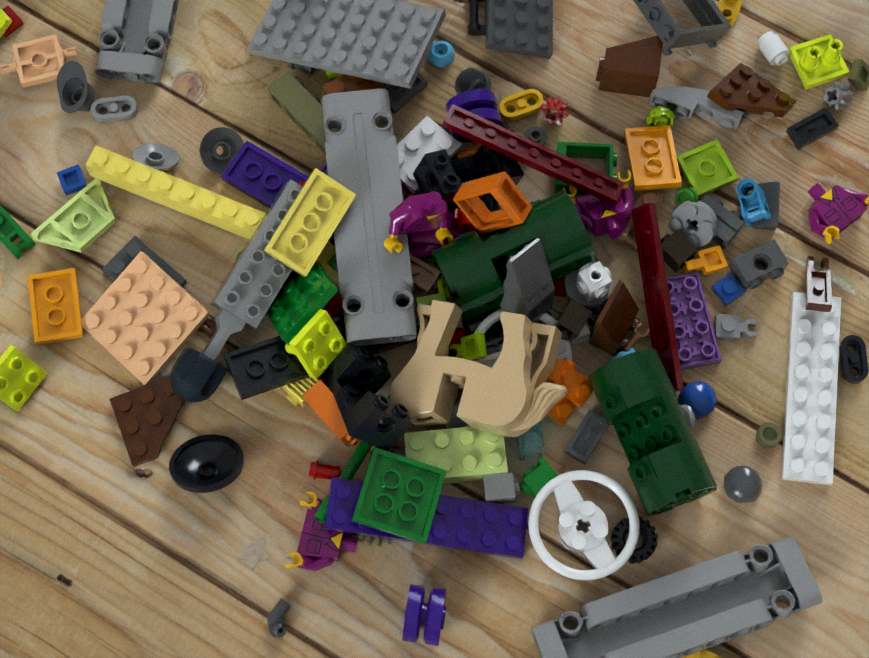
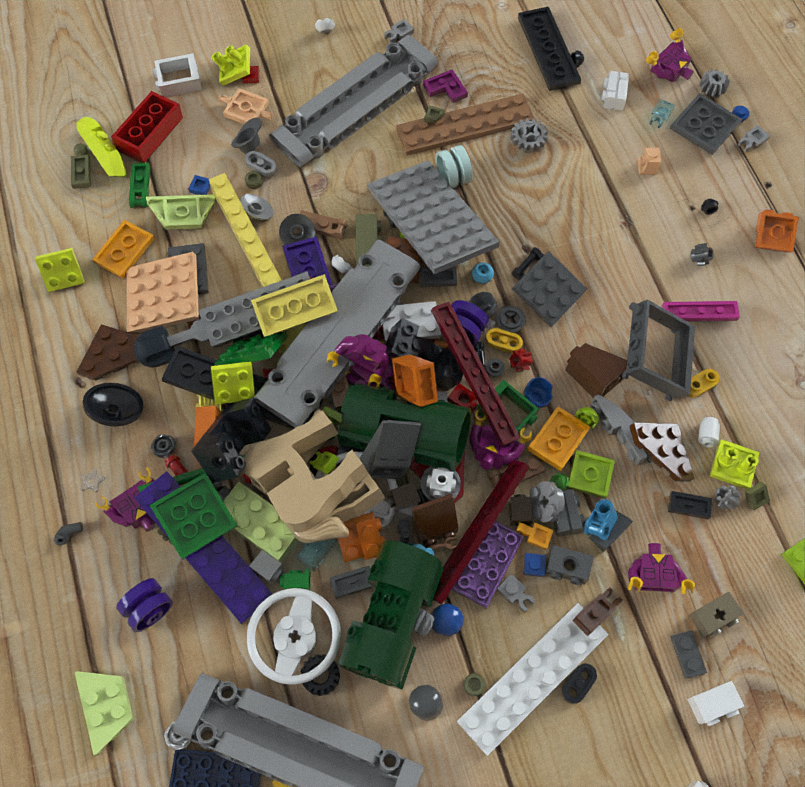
camera: 40 degrees right, 5 degrees down
(121, 131) = (253, 180): none -> olive tile
(241, 121) = (324, 225): none -> medium nougat plate
(289, 455) = (159, 442): none -> dark grey plate
(297, 150) = (340, 265): none -> white plate
(517, 76) = (511, 312): none -> dark grey gear
(526, 184) = (462, 392): none -> red brick
(593, 354) = (403, 530): none -> black piece
(596, 128) = (539, 392): none -> blue hair

